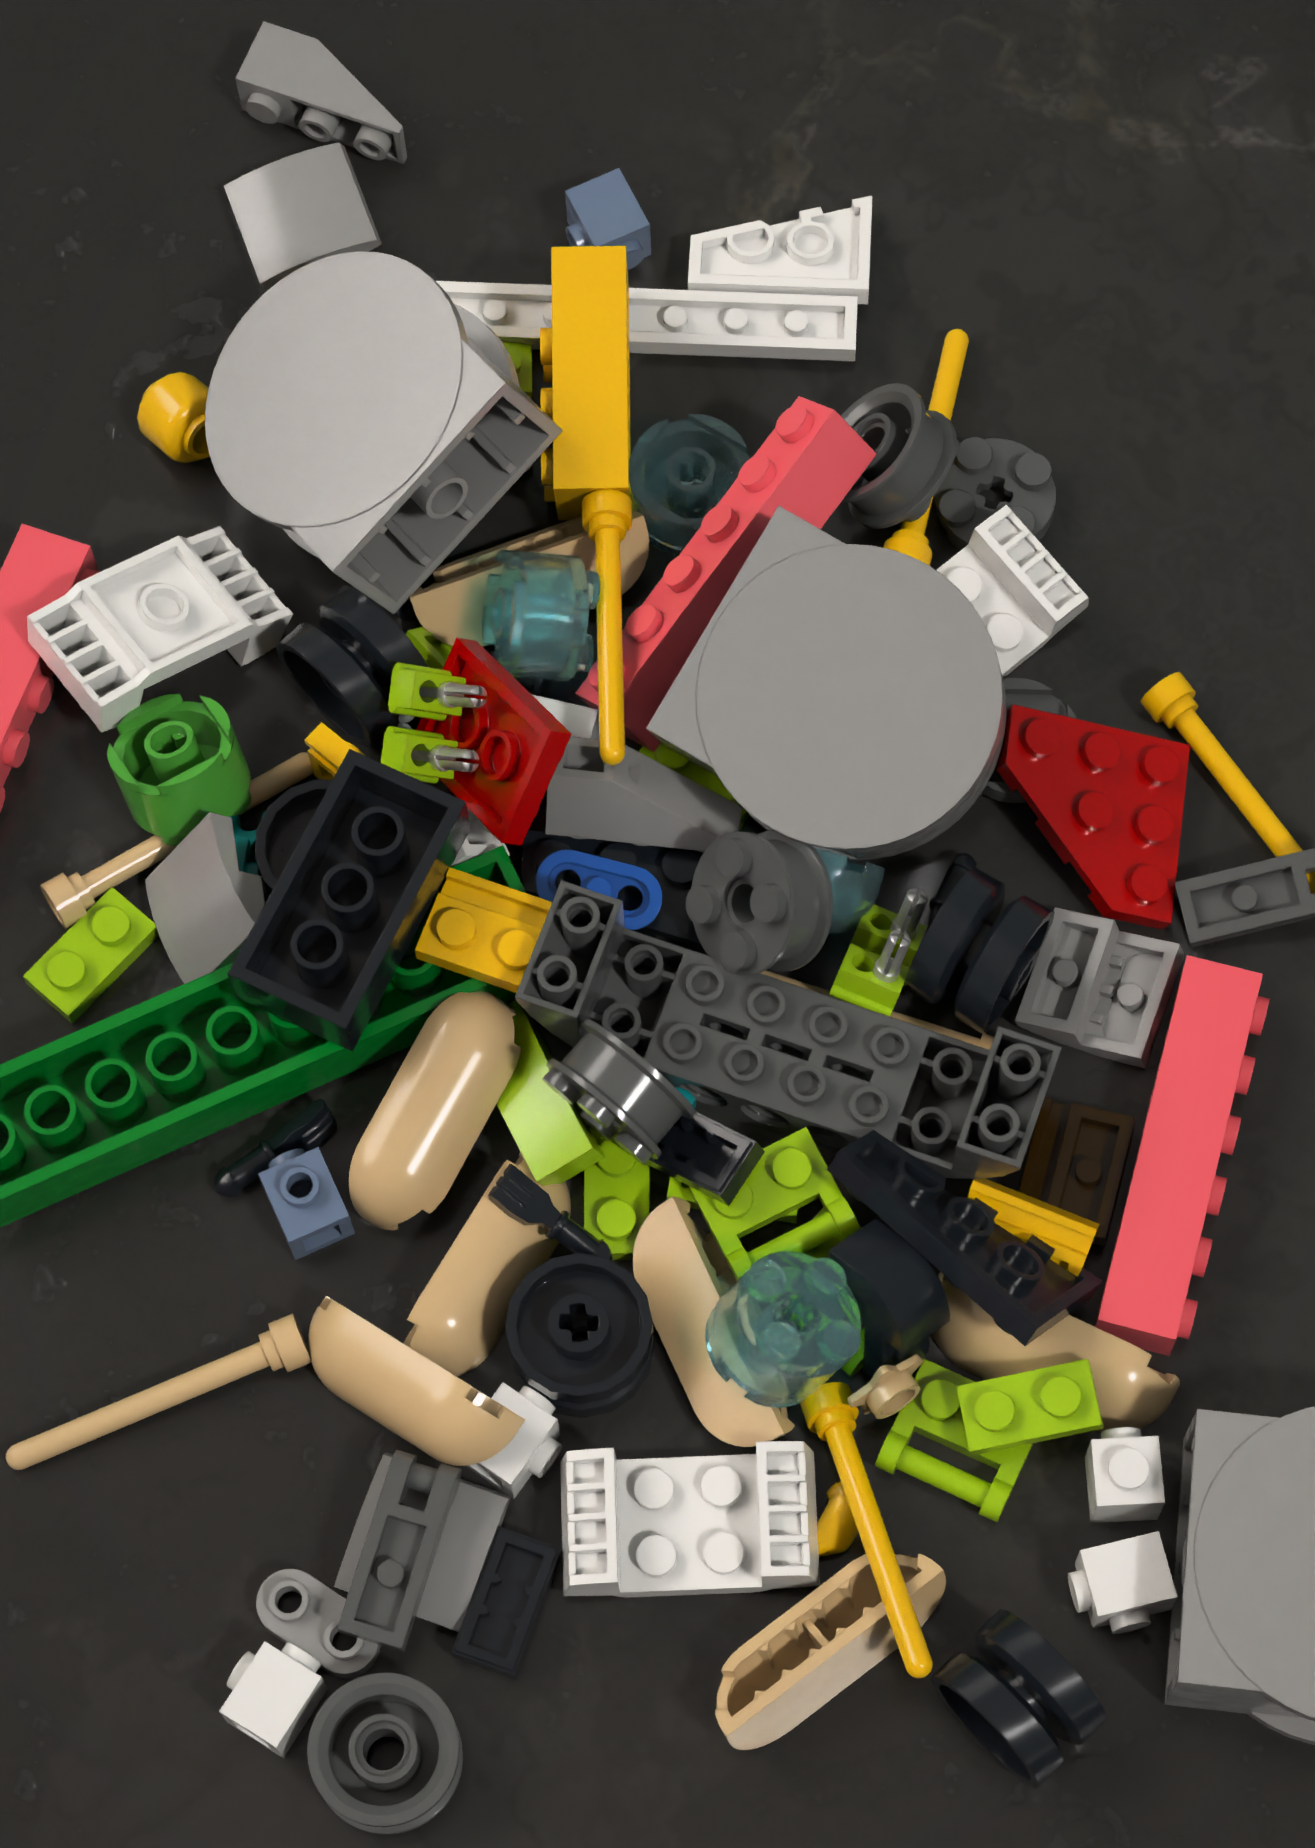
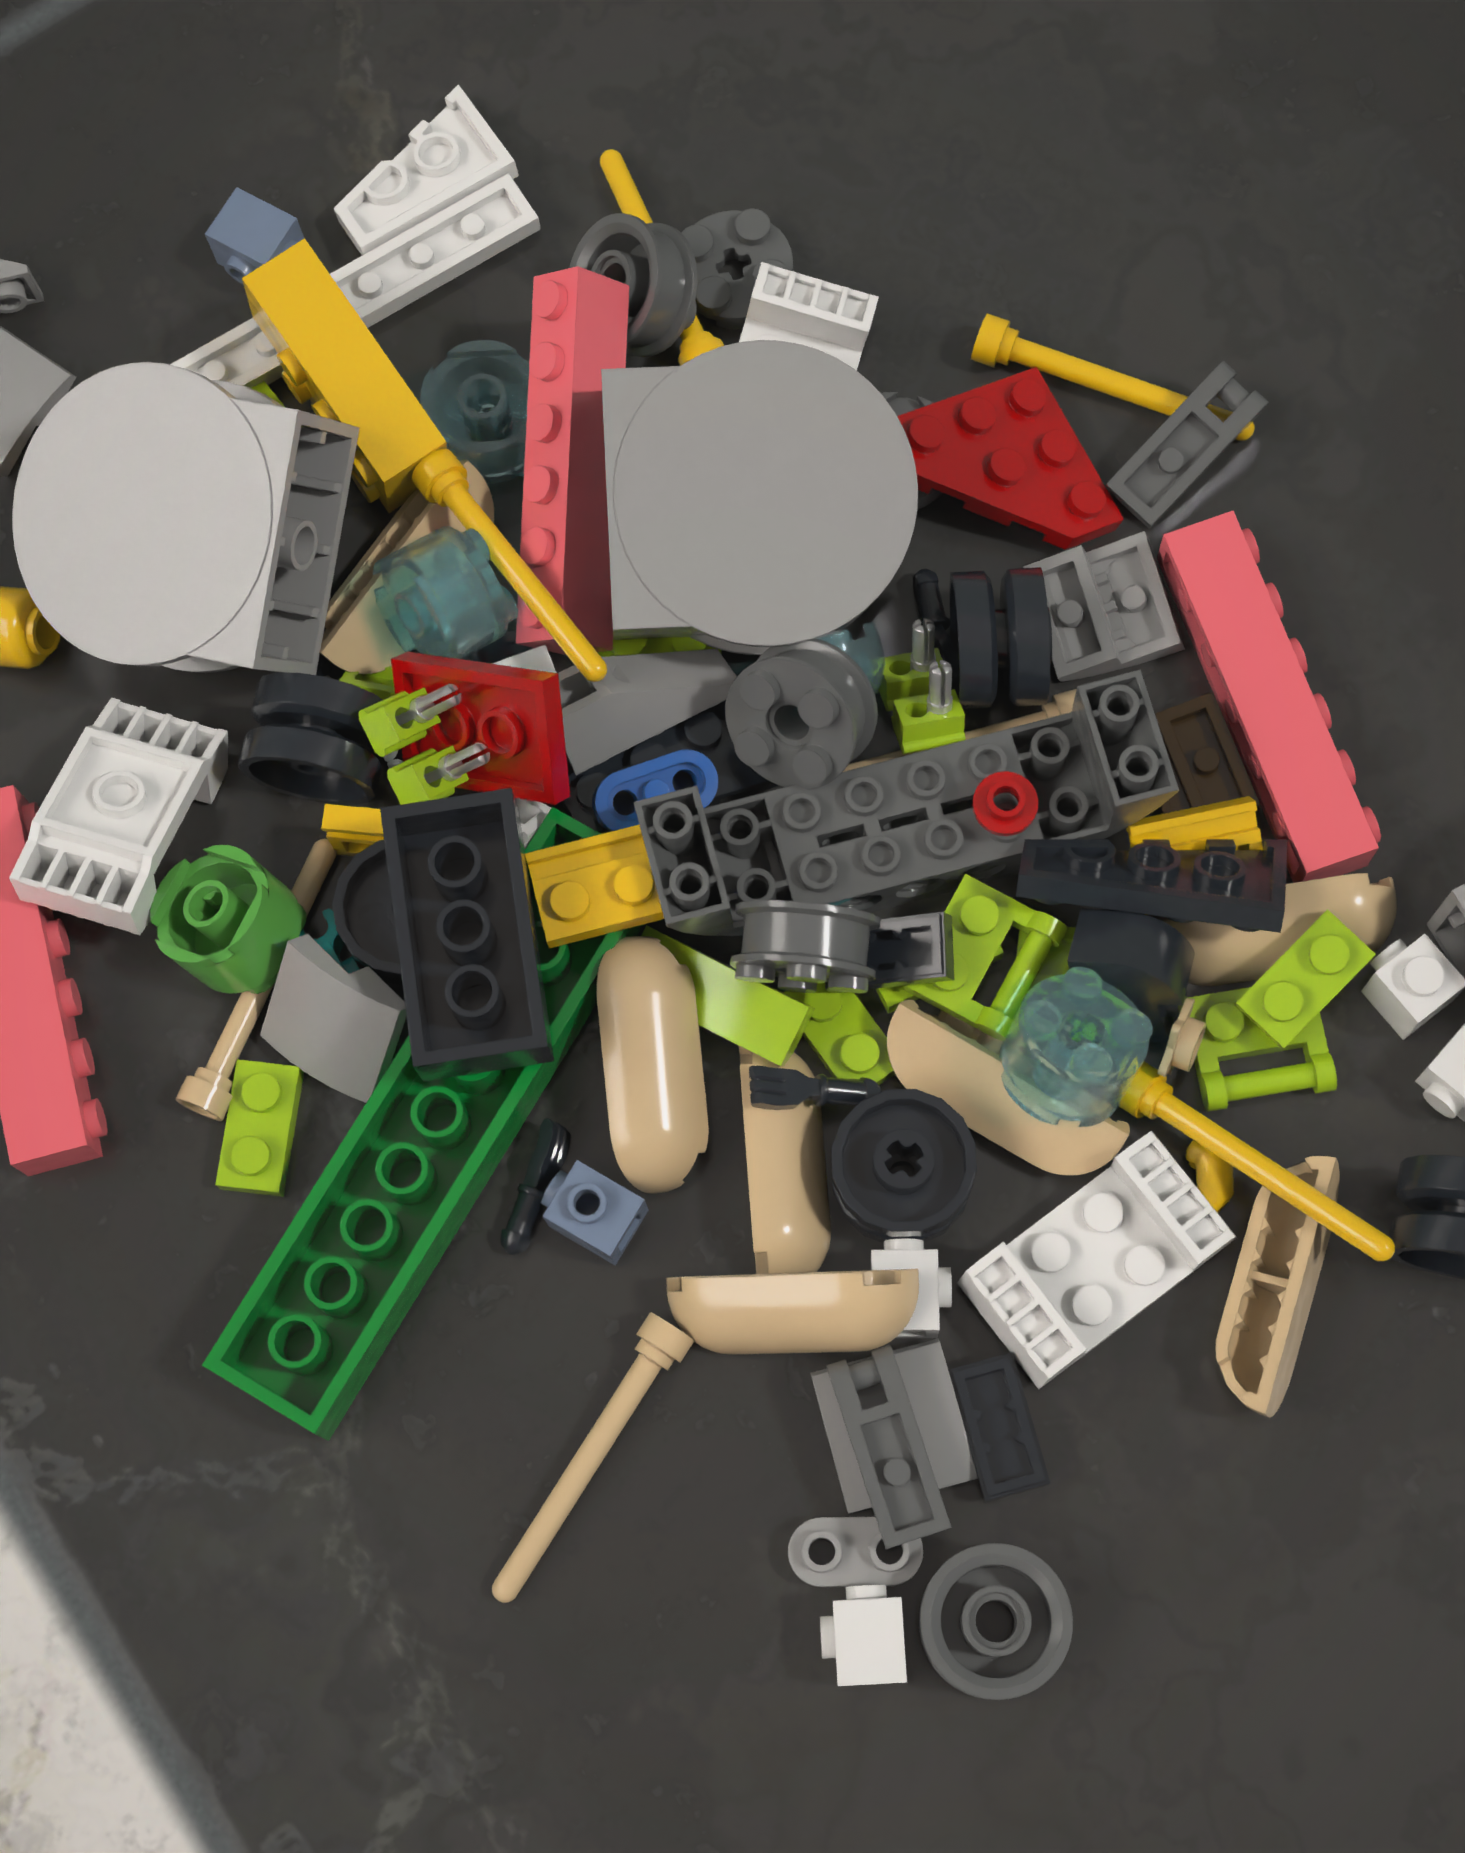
camera: 30 degrees left, 5 degrees up
(869, 1105) = (1000, 821): none -> red plate

